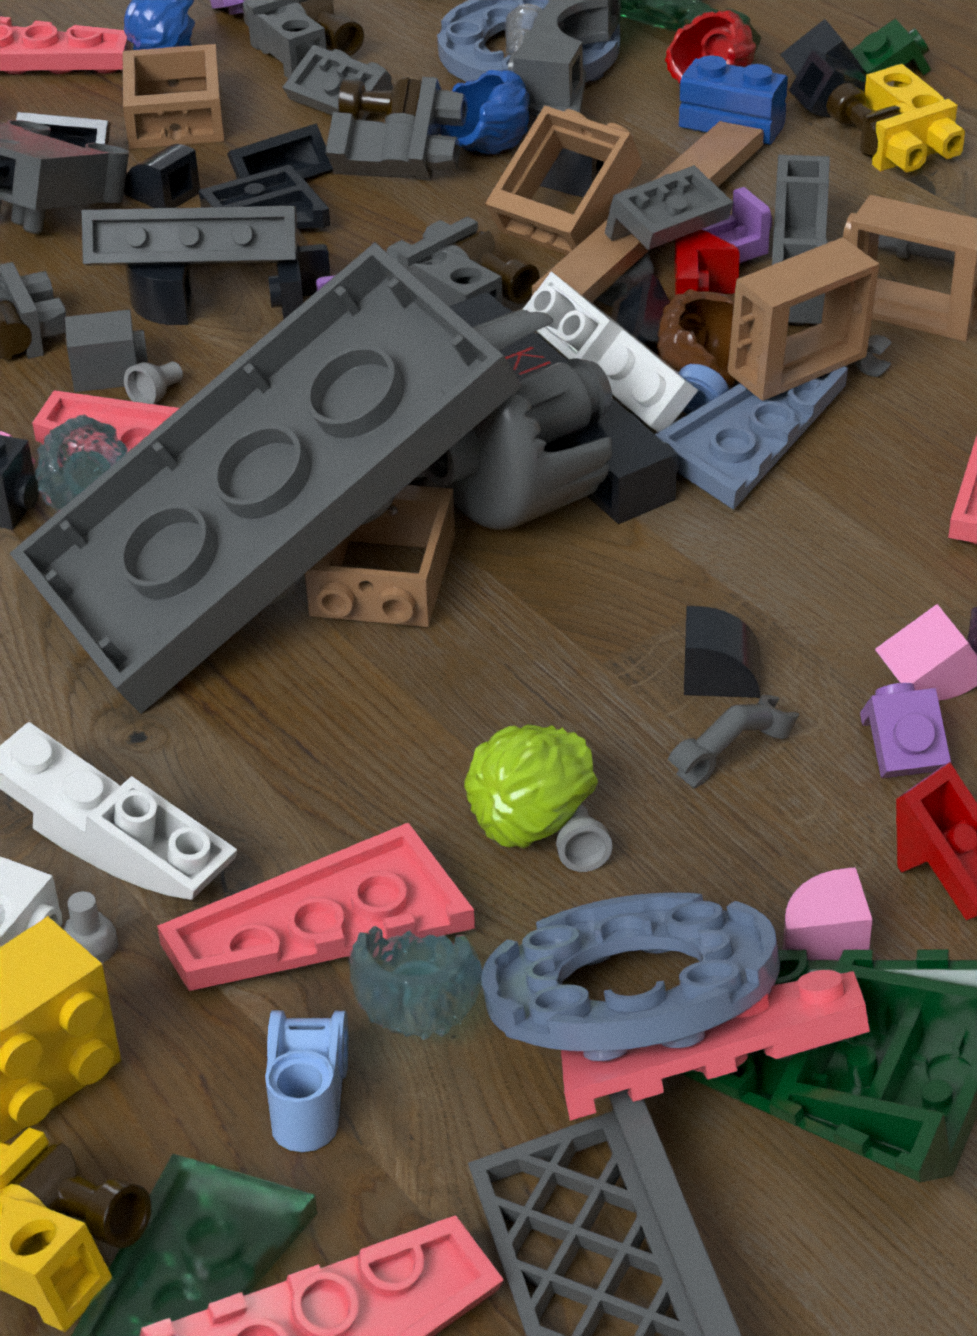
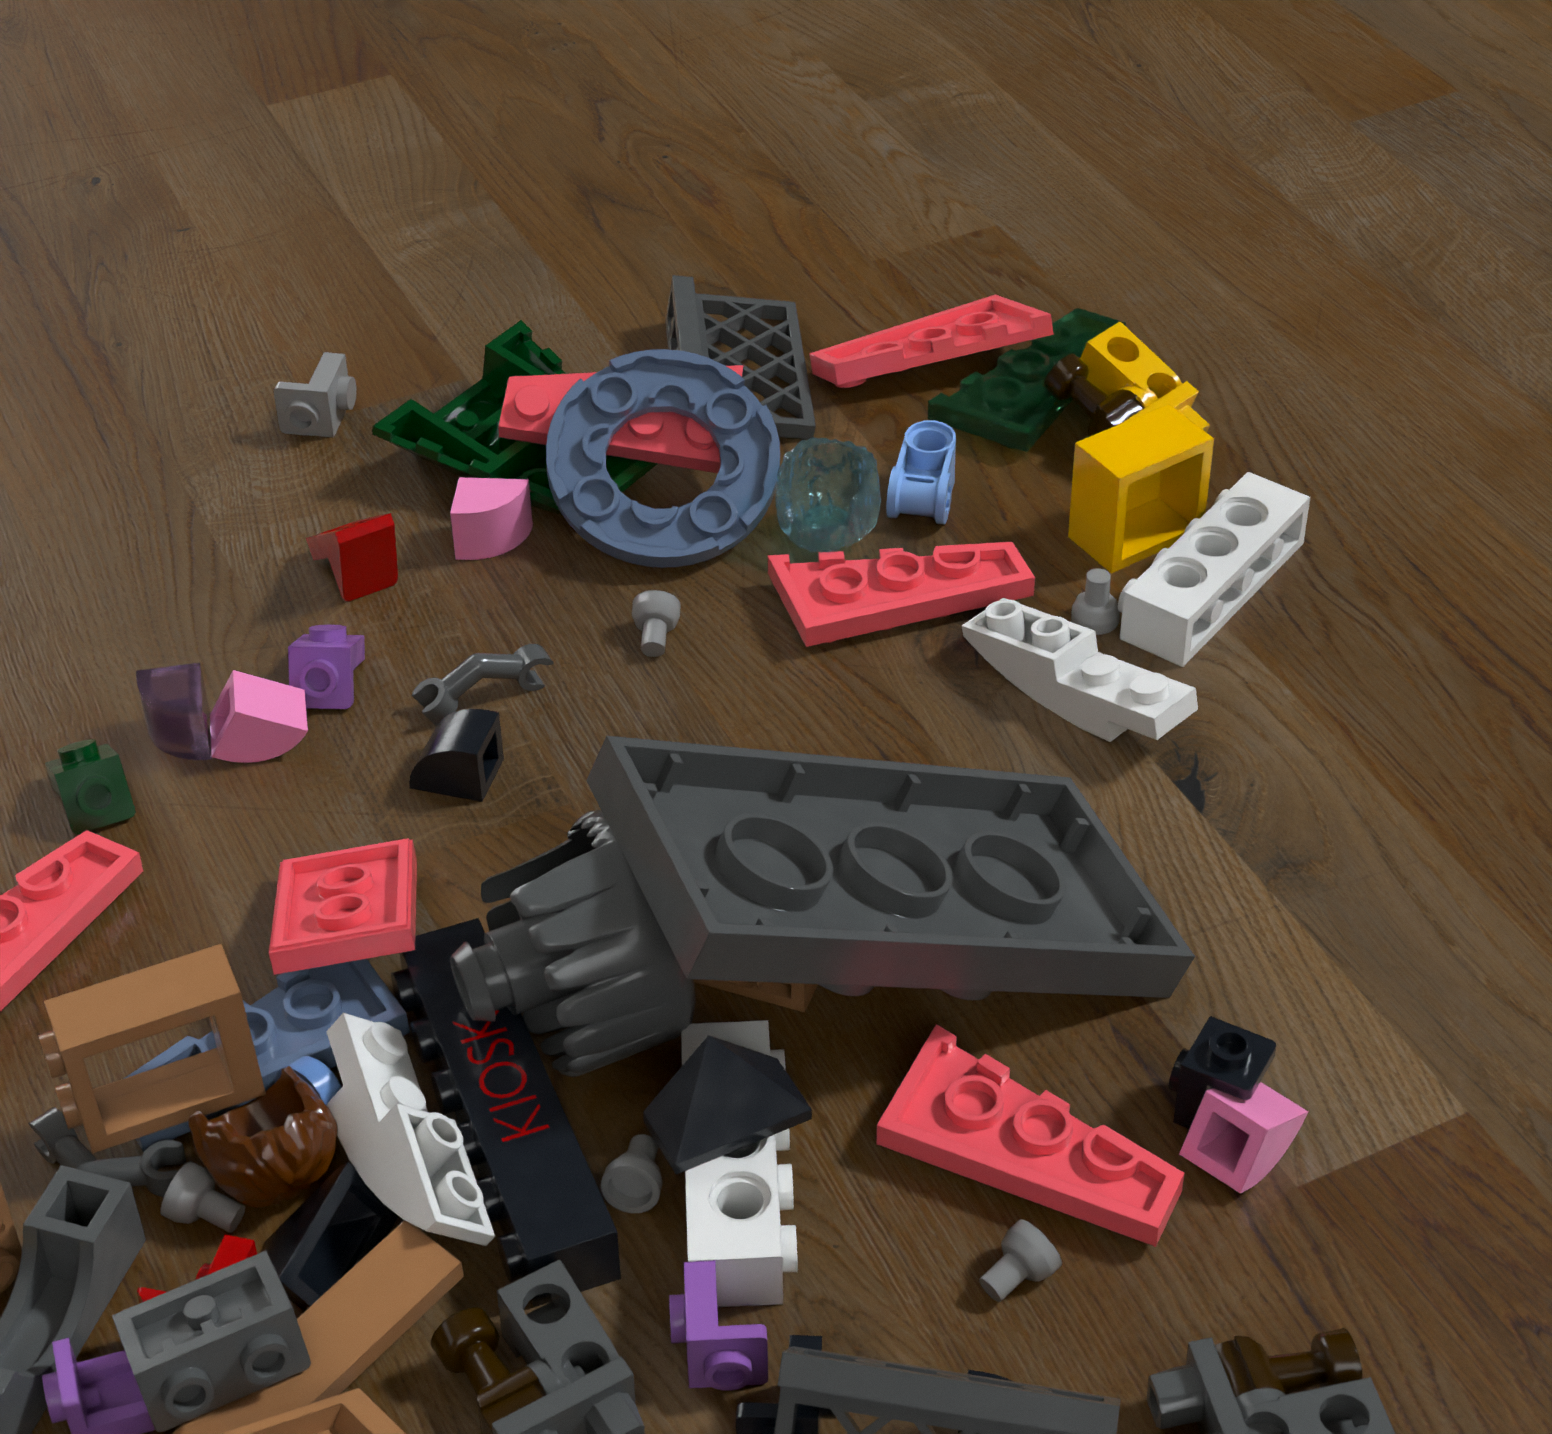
camera: 170 degrees left, 0 degrees up
(75, 457) = (1113, 1053): clear light blue hair -> none
(103, 349) = (1089, 1309): dark grey brick -> none
(528, 782) = (694, 631): lime hair -> none
(741, 494) = (344, 906): none -> coral tile

